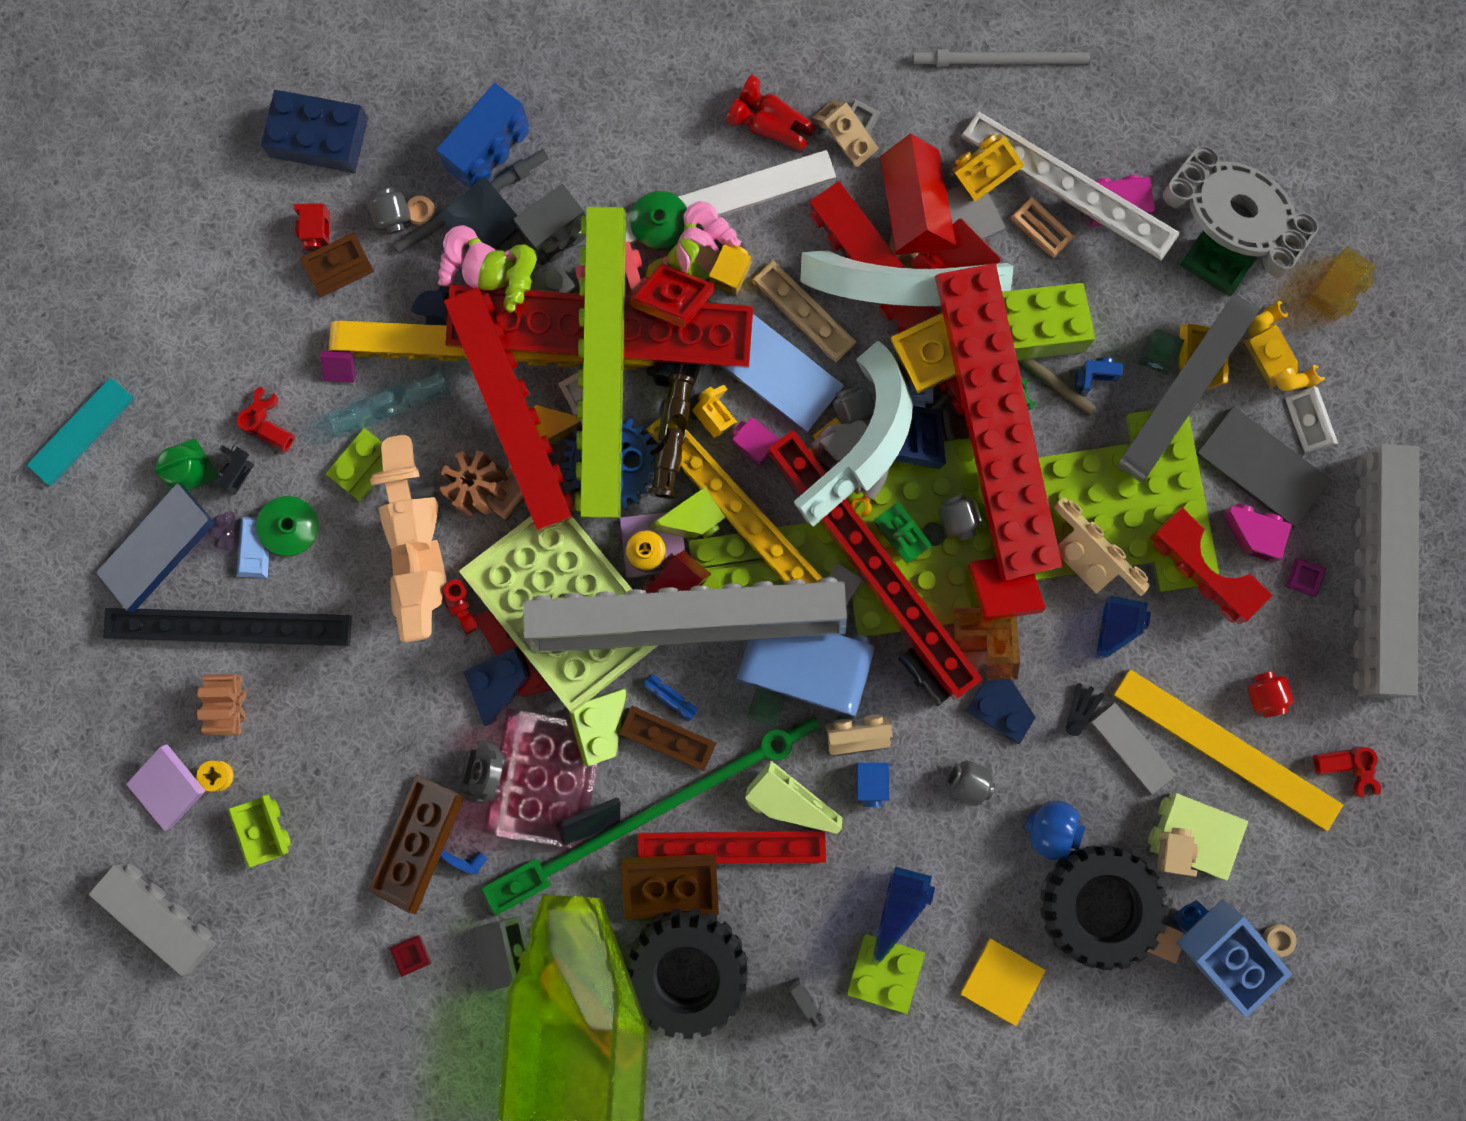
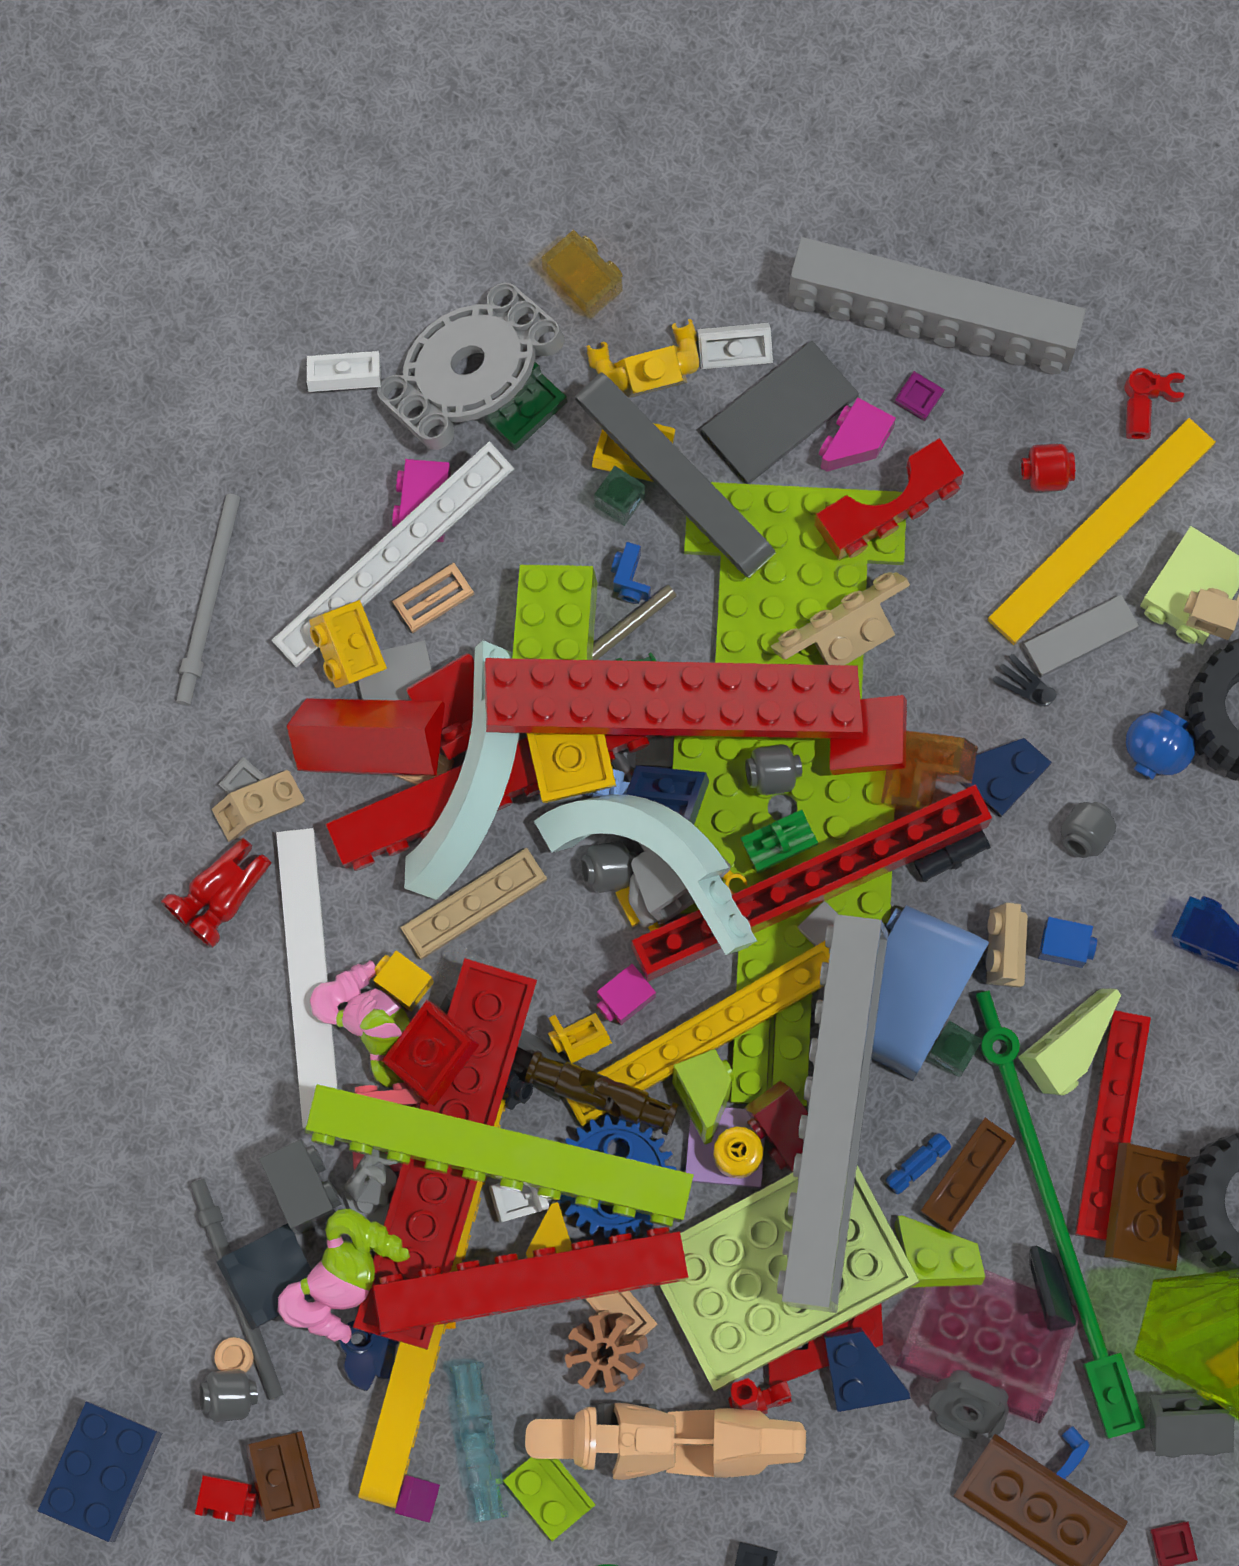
camera: 80 degrees left, 5 degrees down
(484, 136) = (166, 1250): blue brick -> none
(566, 276) = (372, 1179): none -> light grey piece
(656, 233) = (329, 1071): green dish -> none
(786, 377) = (556, 939): light blue tile -> none
(1120, 624) = (935, 616): clear blue slope -> none
(1211, 116) = (343, 371): none -> white plate

